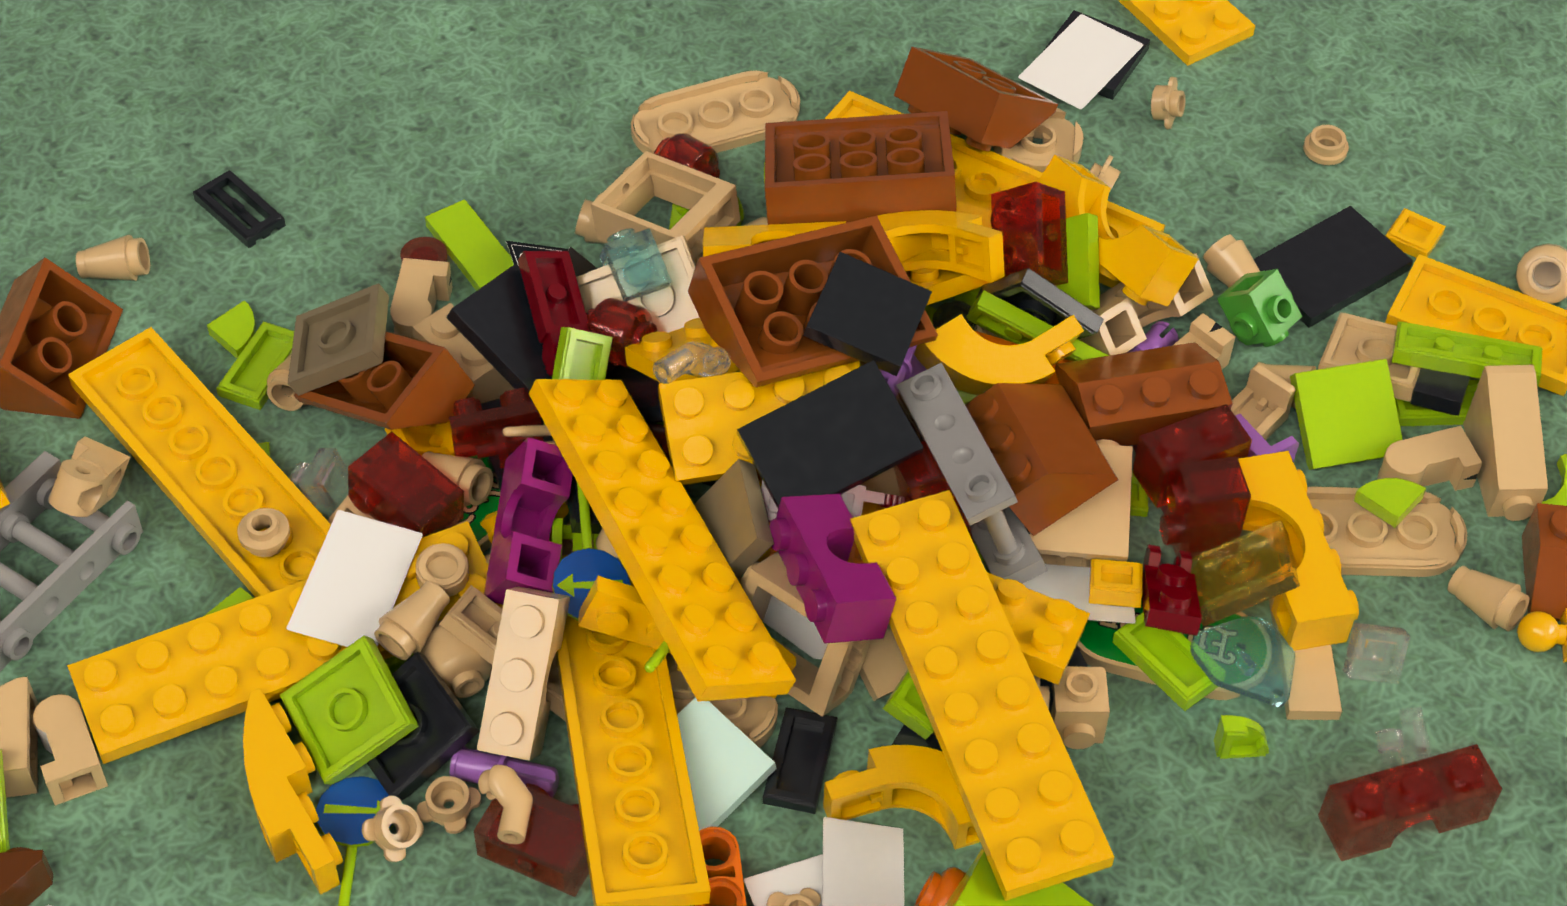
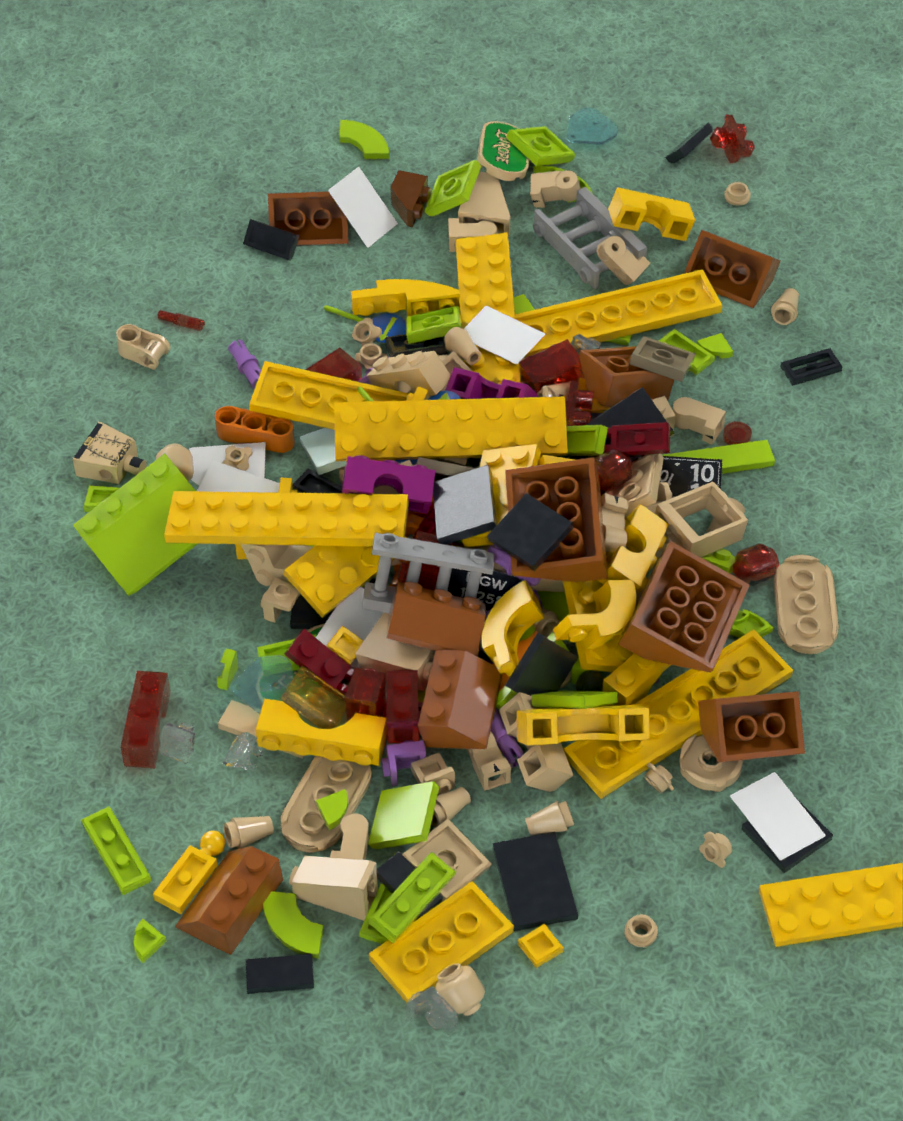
camera: 115 degrees right, 0 degrees up
(265, 542) = (555, 315): tan plate -> none
(444, 566) = (489, 365): tan tile -> none
(507, 787) = (343, 358): tan arm -> none
(635, 263) = (642, 470): clear light blue bracket -> none
(694, 360) = (544, 452): clear arm -> none
(1032, 230) = (591, 676): clear red brick -> none
(1260, 308) = (505, 806): bright green brick -> none

